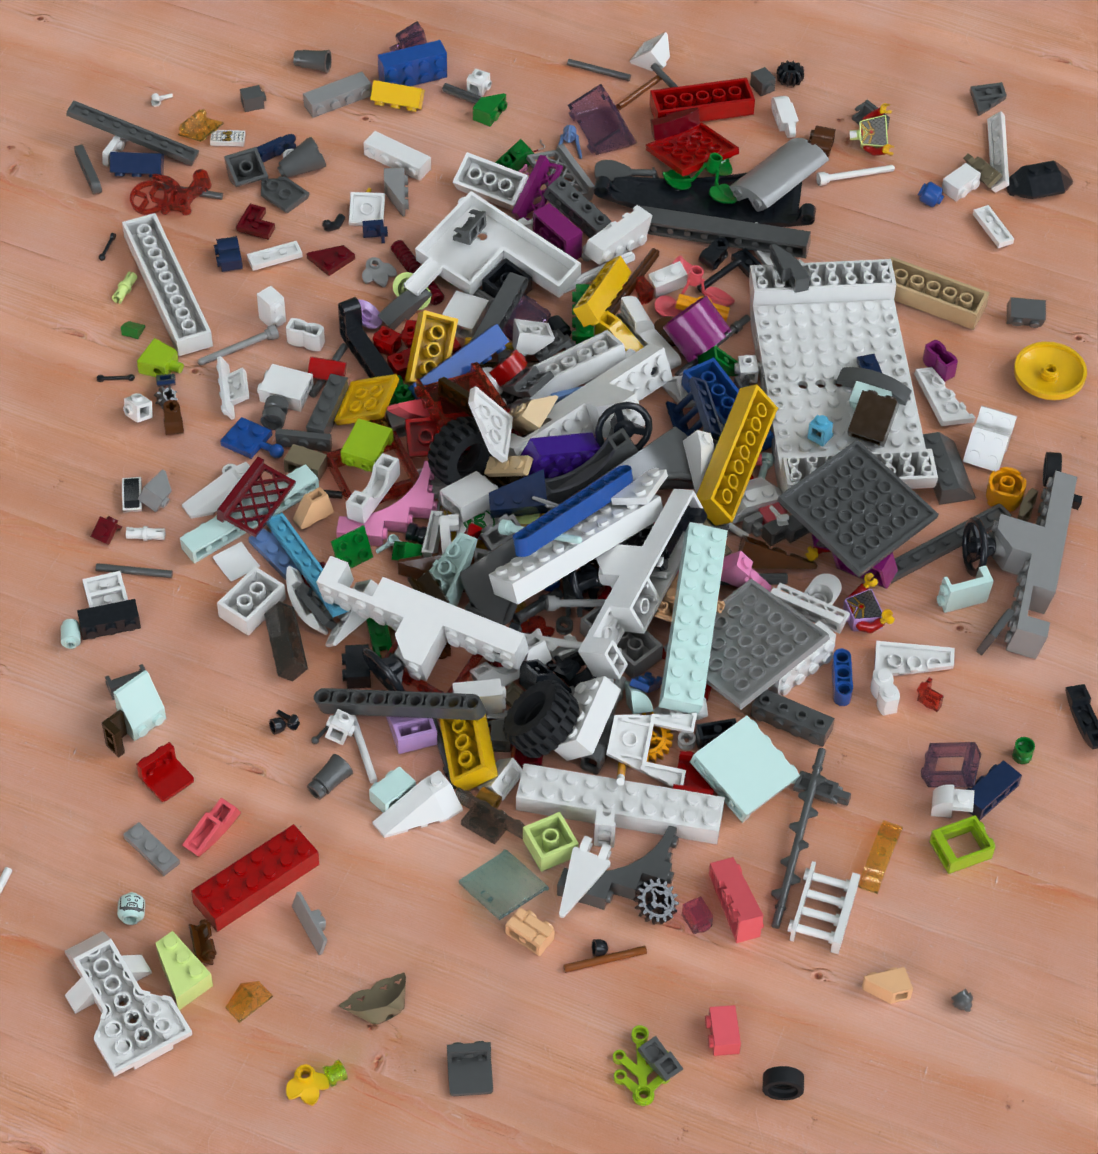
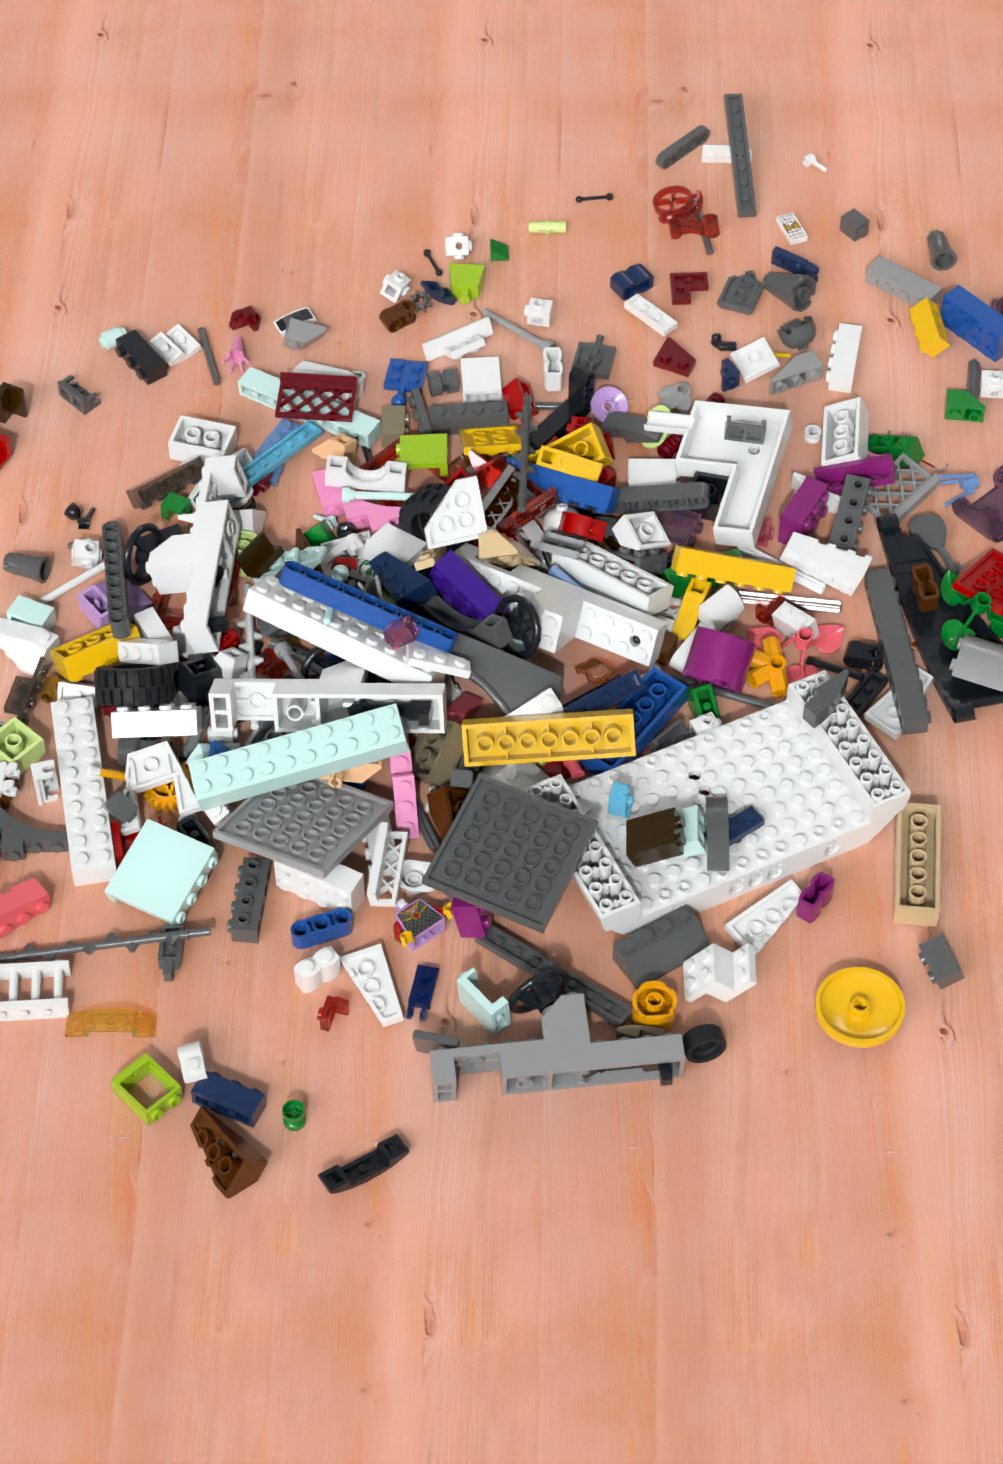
camera: 70 degrees right, 0 degrees up
(114, 351) = (451, 249): none -> white brick
(136, 163) = (707, 175): dark blue brick -> none
(140, 705) = (41, 404): light aqua slope -> none
(145, 533) = (254, 347): white pin -> none
(149, 547) = (236, 355): none -> bright pink piece
(167, 284) = (561, 250): white brick -> none
(199, 126) = (784, 202): clear yellow hinge -> none
(231, 322) = (539, 312): none -> white brick
(235, 561) = (254, 421): white sticker -> none
(245, 167) = (750, 251): dark grey slope -> none
(271, 307) = (570, 331): white brick -> none
(306, 307) = (595, 357): none -> dark grey plate
(315, 643) = (175, 504): none -> green panel
(353, 547) = (297, 491): green hinge -> none
(357, 170) = (798, 333): none -> dark grey cylinder
(385, 510) = (349, 495): none -> light aqua piece
(421, 372) = (523, 491): none -> dark grey plant
(449, 345) = (569, 464): none -> yellow slope
(510, 697) = (148, 651): none -> white brick
(612, 496) = (401, 632): none -> clear pink brick
(660, 413) = (594, 670): none -> clear orange slope
(668, 772) = (120, 807): none -> dark grey brick
(674, 191) = (924, 587): none -> reddish brown brick
(741, 532) = (462, 779): none -> dark grey slope
(928, 632) = (422, 991): none -> clear blue hinge
(962, 778) = (251, 1059): window -> none
(1048, 806) = (230, 1156): none -> reddish brown wedge

